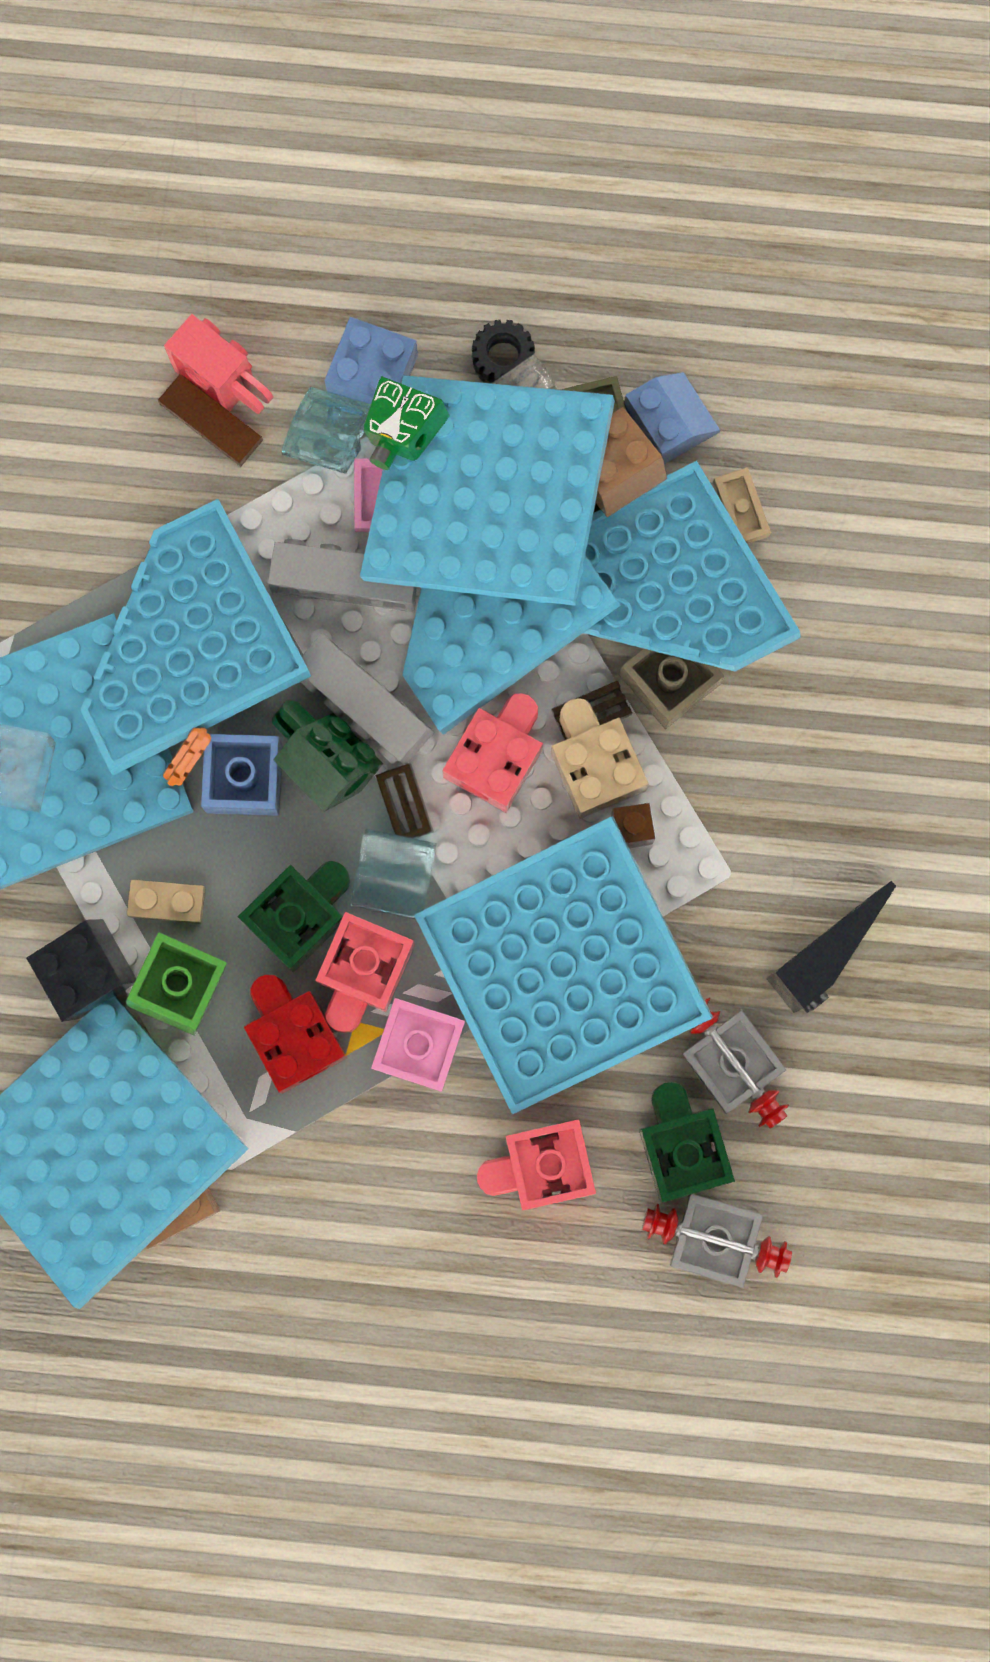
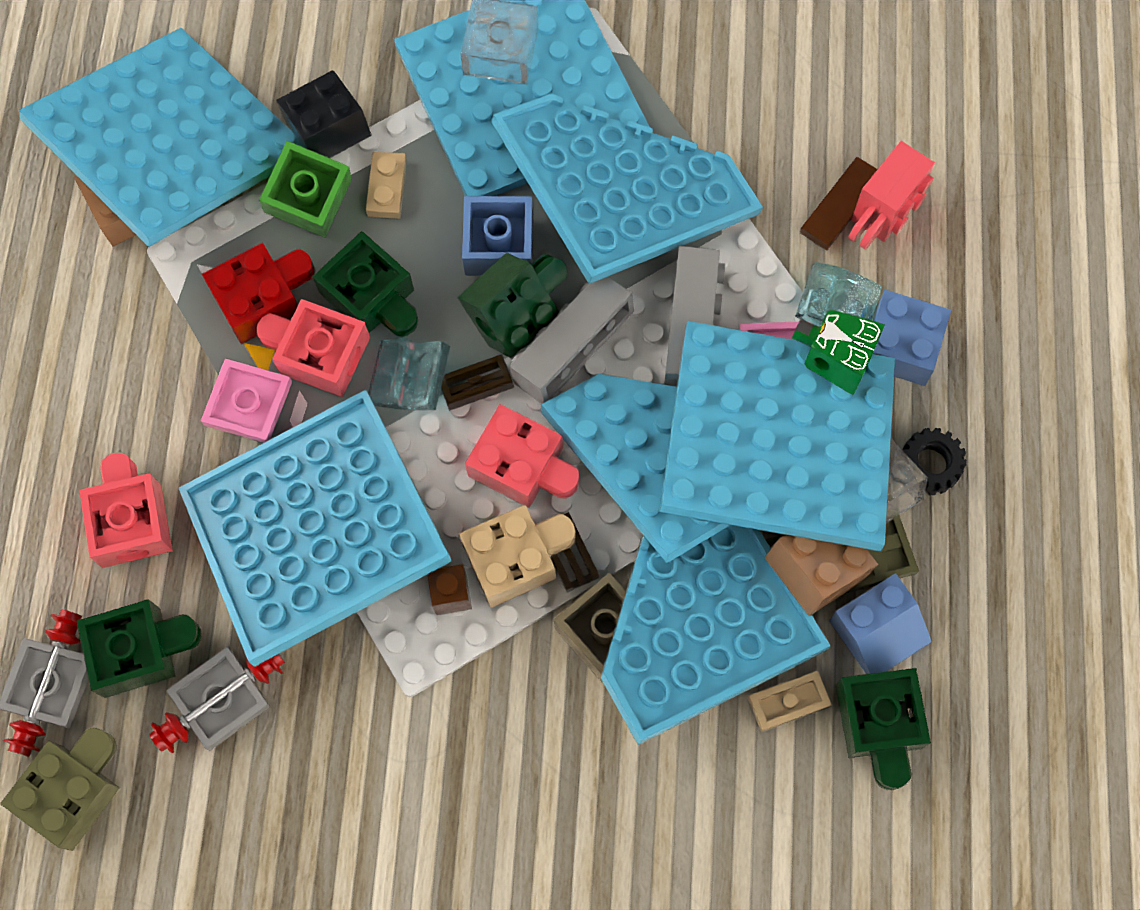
camera: 90 degrees right, 10 degrees down
(187, 756) = (511, 184): orange axle -> none
(764, 419) = (879, 722): none -> dark green brick
(817, 967) = (297, 767): black slope -> none
(825, 1208) = (64, 788): none -> olive brick

